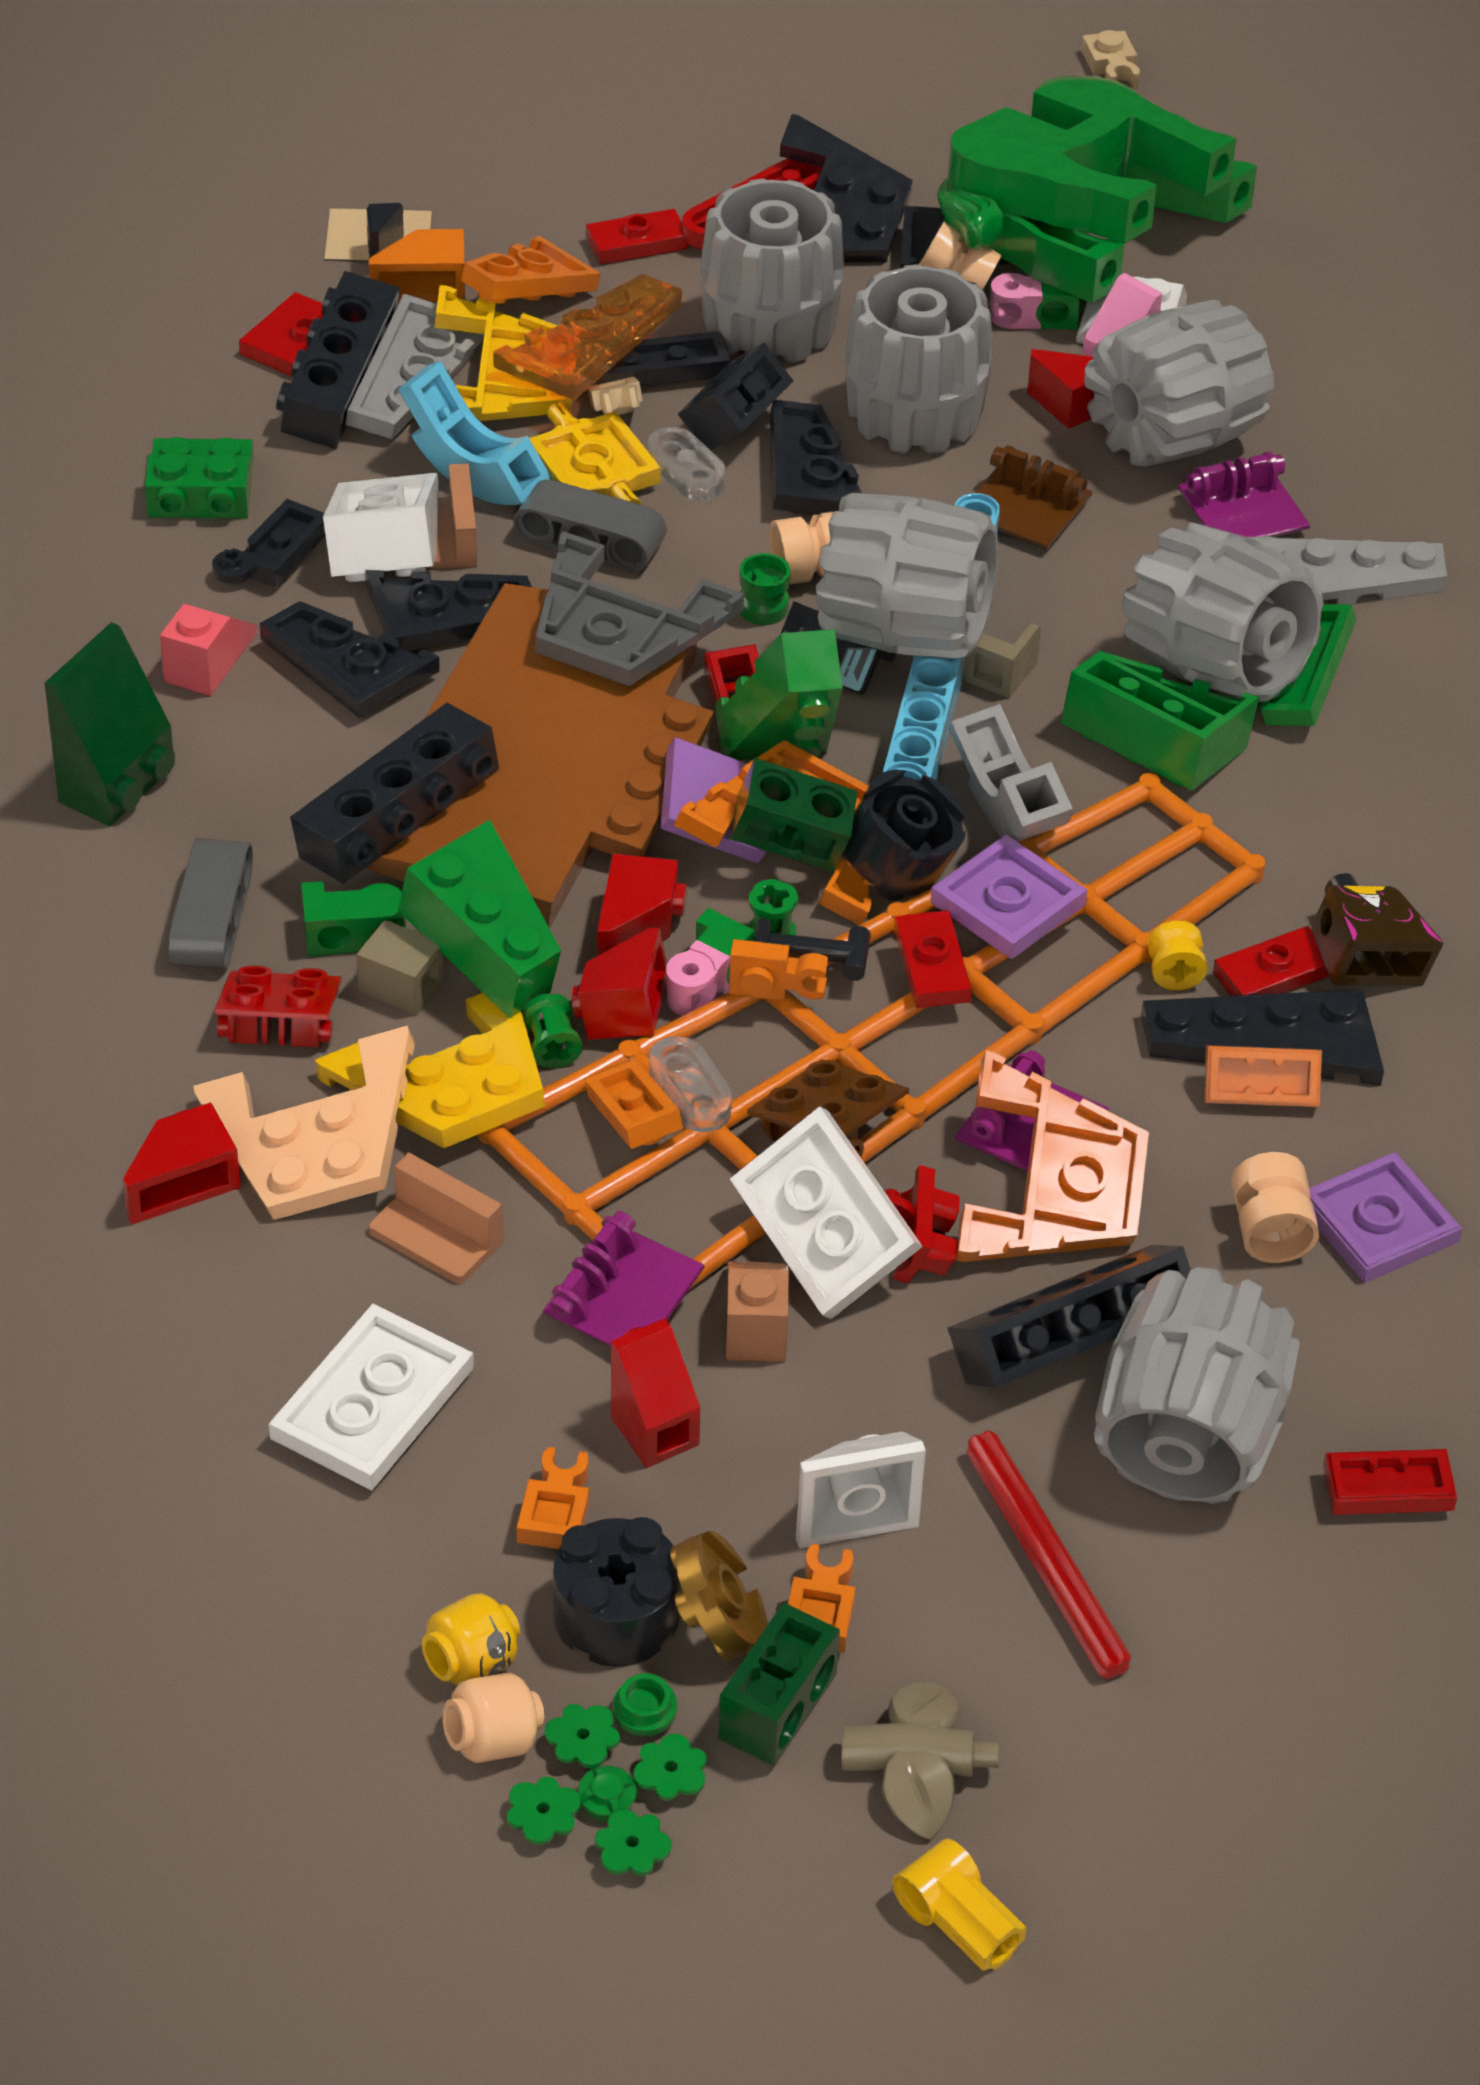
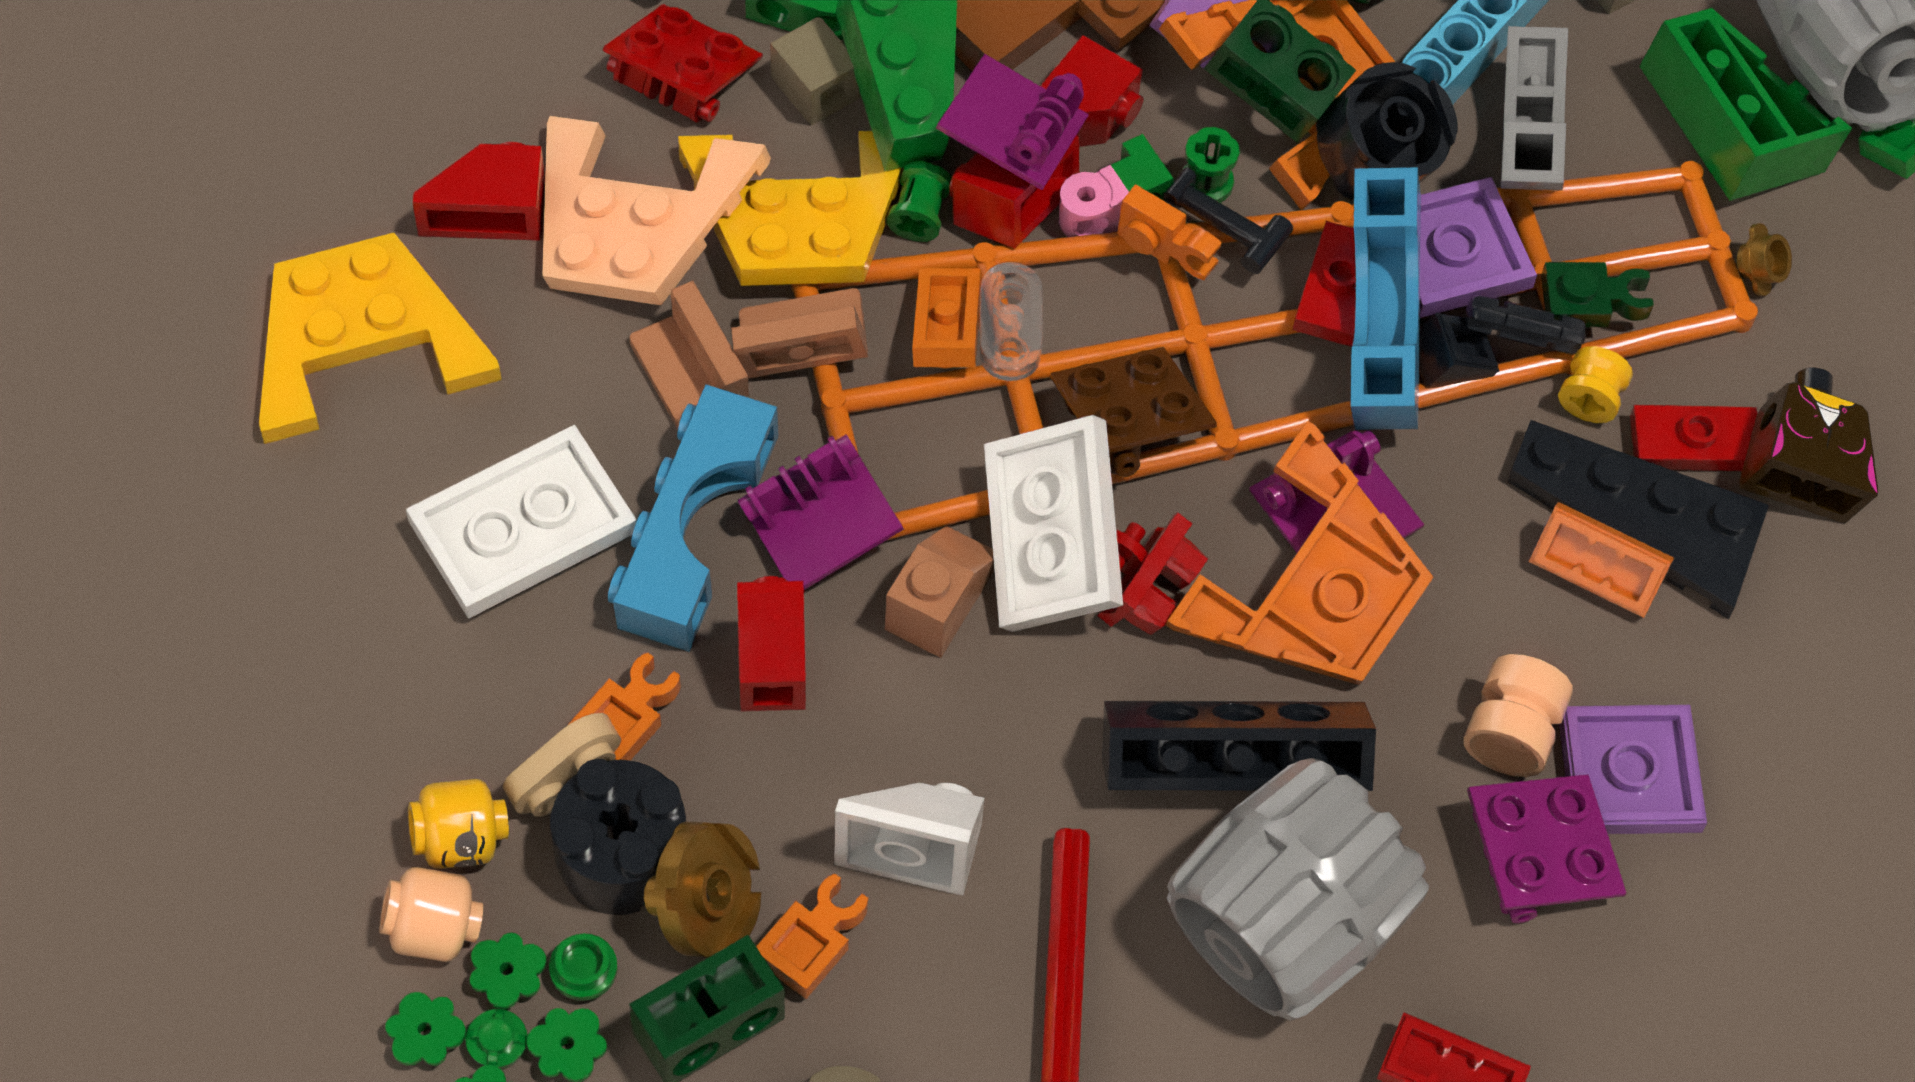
camera: 25 degrees right, 15 degrees up
(118, 1294) = (352, 308): none -> yellow wing
(524, 1158) = (801, 333): none -> nougat panel
(524, 1577) = (542, 776): none -> tan plate
(530, 1387) = (720, 451): none -> dark azure arch
(609, 929) = (1016, 119): none -> magenta hinge
(967, 910) = (1386, 299): none -> dark azure arch
(1051, 973) = (1453, 353): none -> black slope
(1099, 929) = (1525, 324): none -> black axle
(1130, 896) = (1590, 295): none -> dark green plate
(1245, 820) = (1764, 259): none -> pearl gold plate
(1350, 1292) = (1545, 844): none -> magenta hinge

